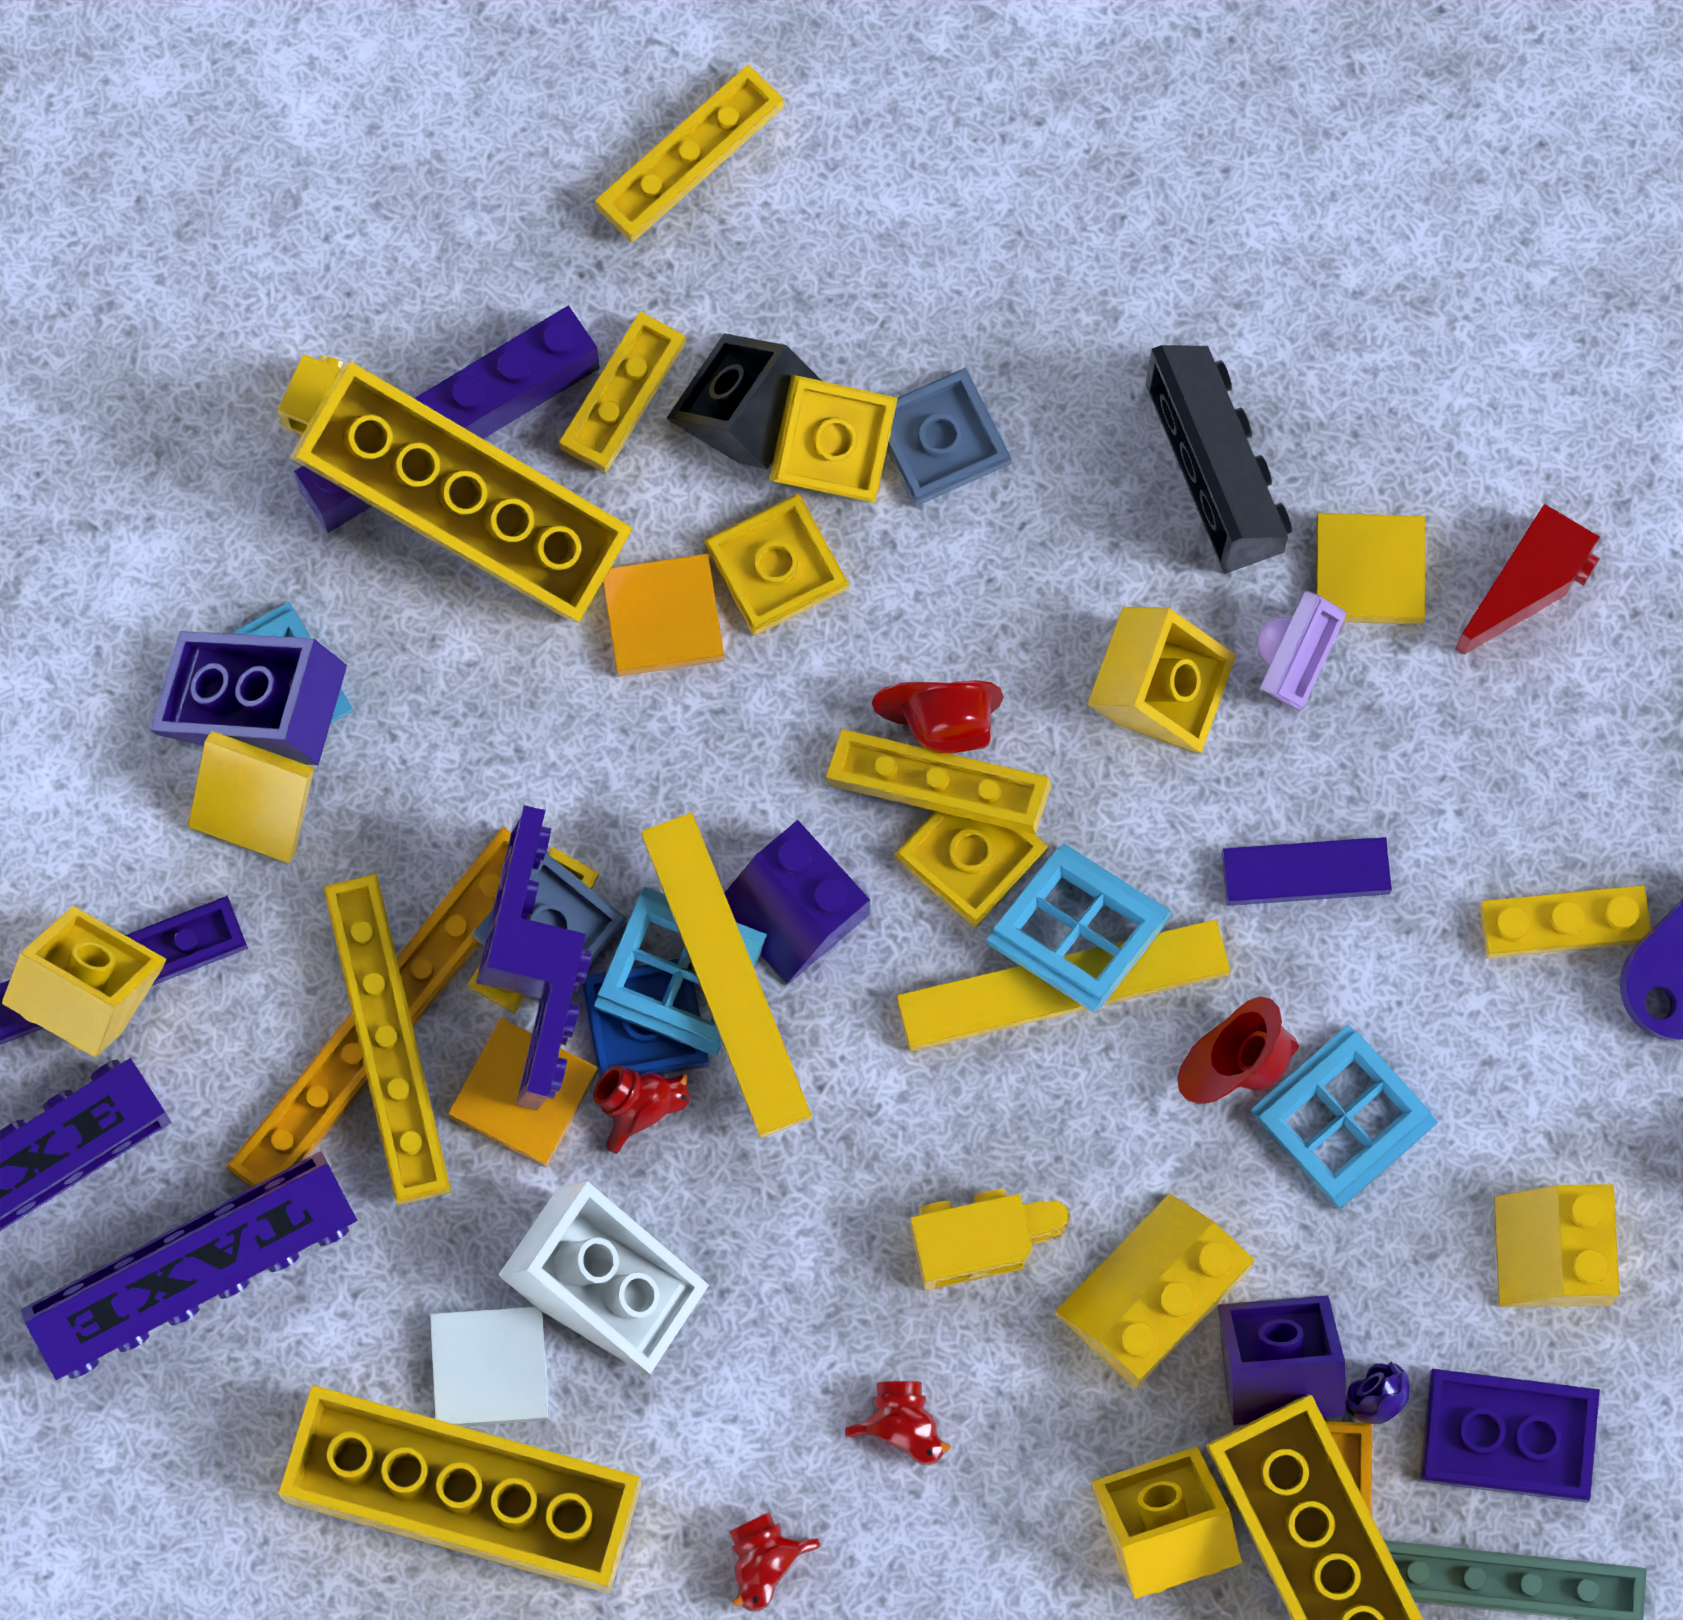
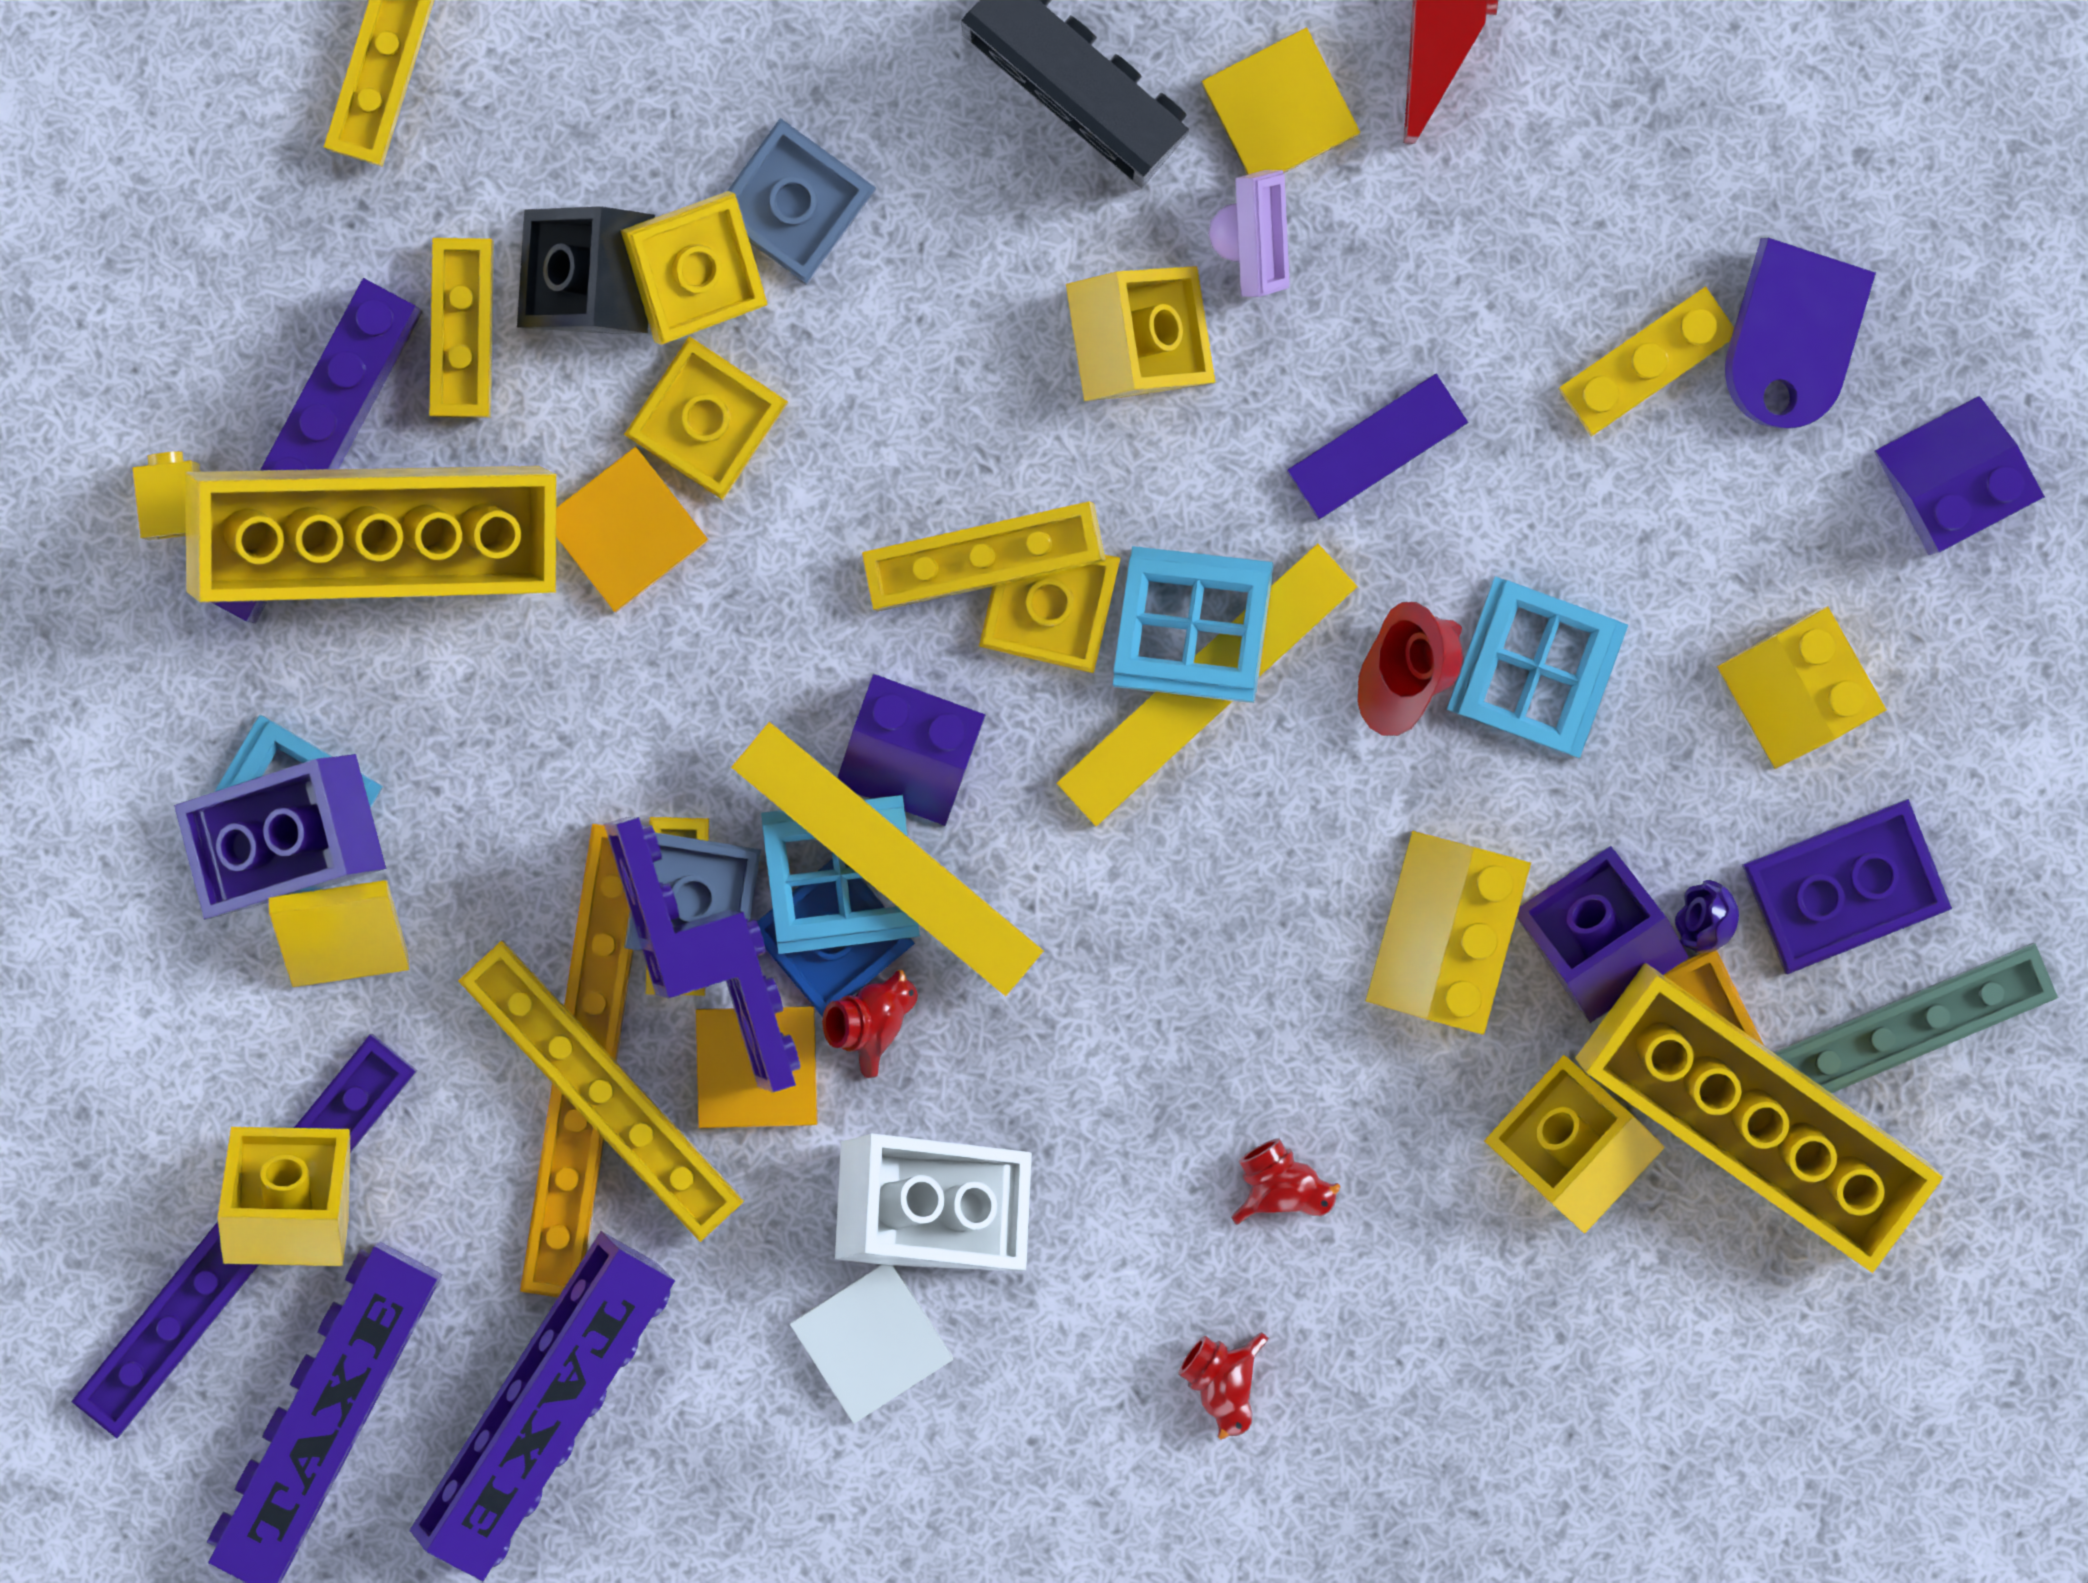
camera: 25 degrees left, 15 degrees up
(460, 1489) = (912, 1475): yellow brick -> none
(942, 715) = (957, 493): red piece -> none
(981, 1237) = (1262, 973): yellow hinge -> none

